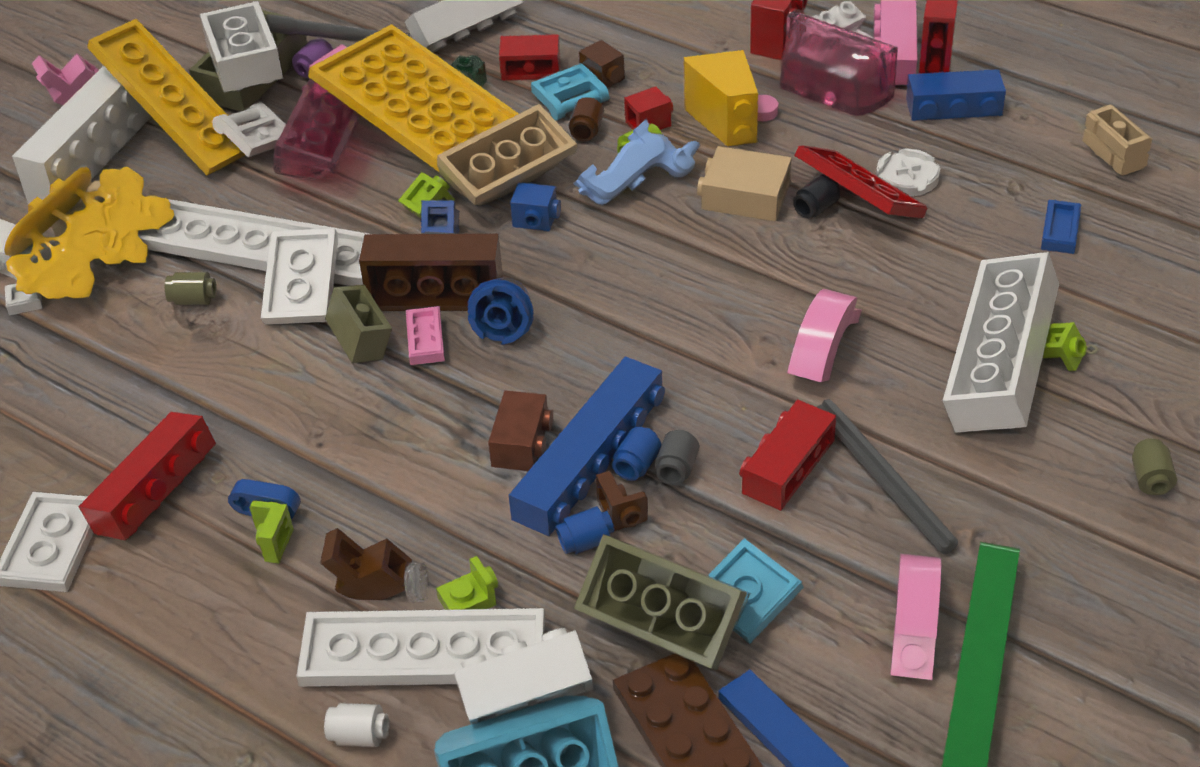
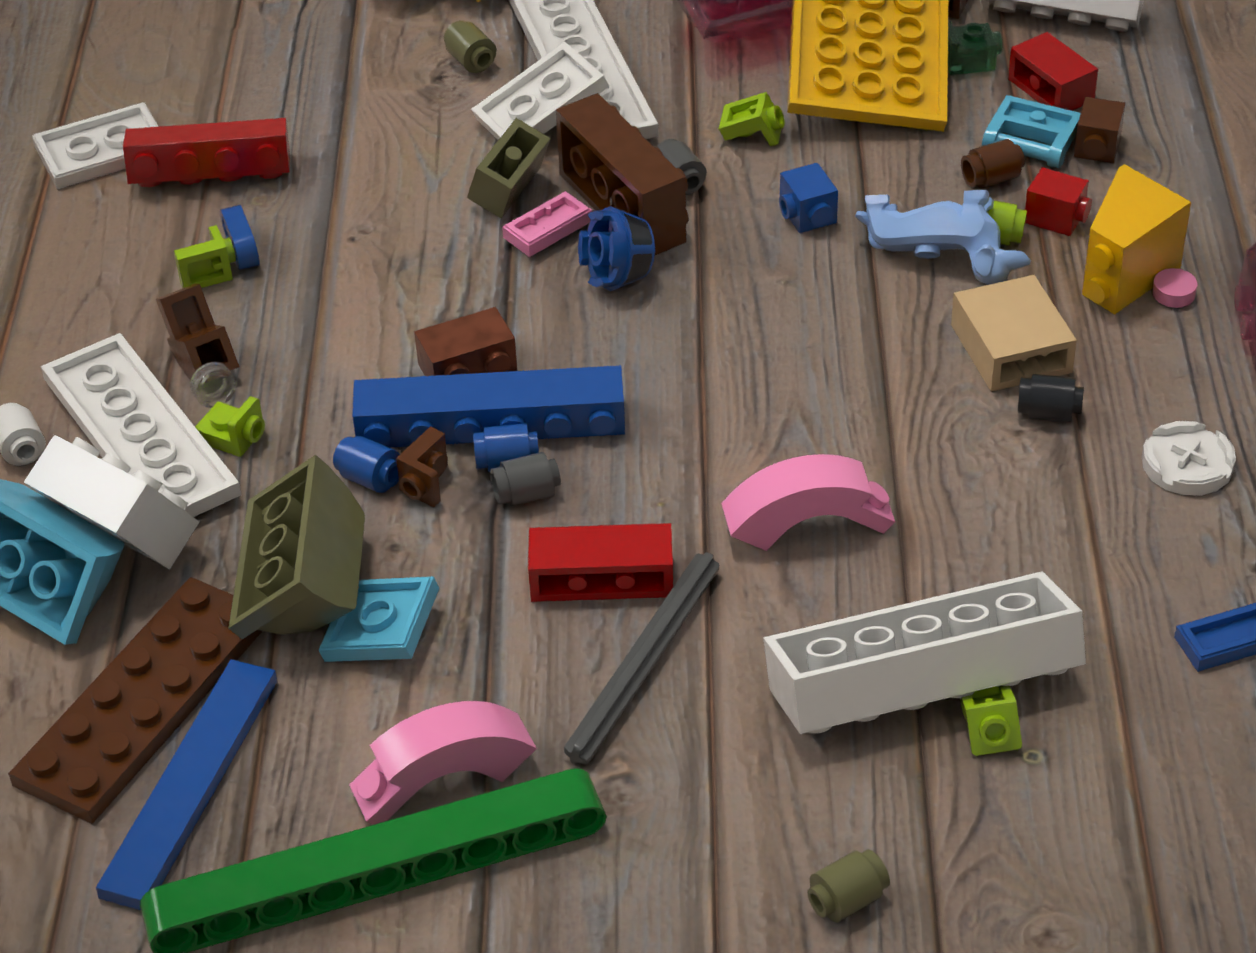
camera: 55 degrees right, 0 degrees up
(439, 216) = (712, 142): blue brick -> none
(506, 154) = (840, 130): tan windscreen -> none
(861, 181) = (1105, 420): red tile -> none

